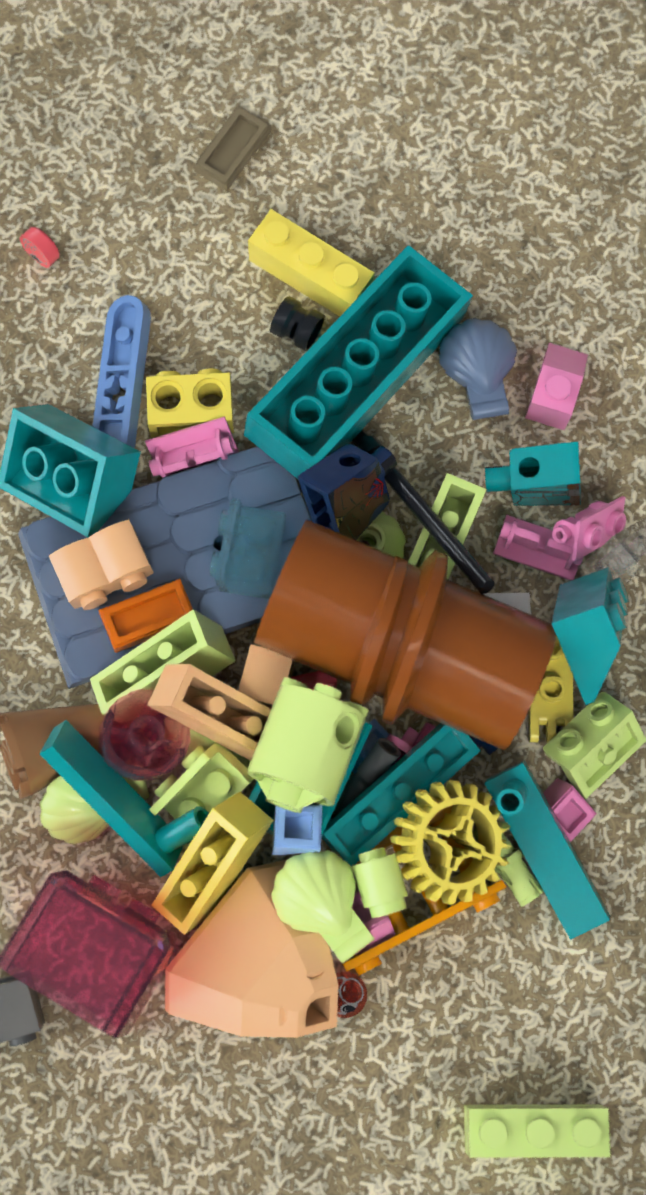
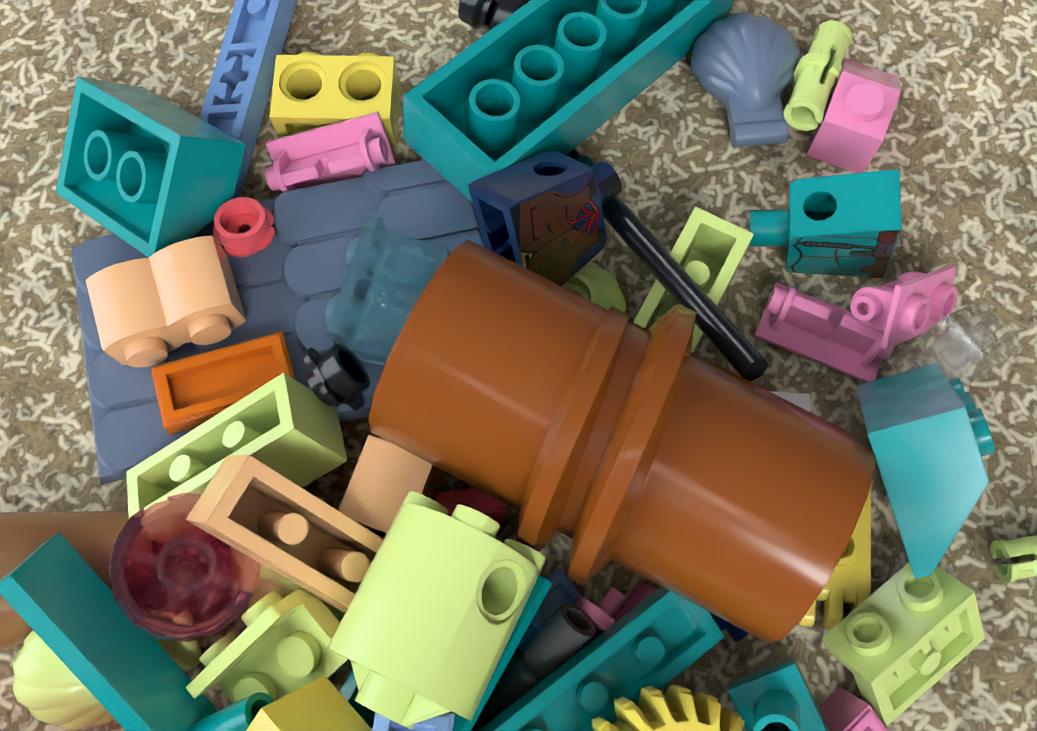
camera: 10 degrees right, 5 degrees down
(138, 498) = (240, 215): none -> coral plate
(222, 607) = (337, 376): none -> black plate
(528, 364) = (817, 75): none -> yellowish green pin

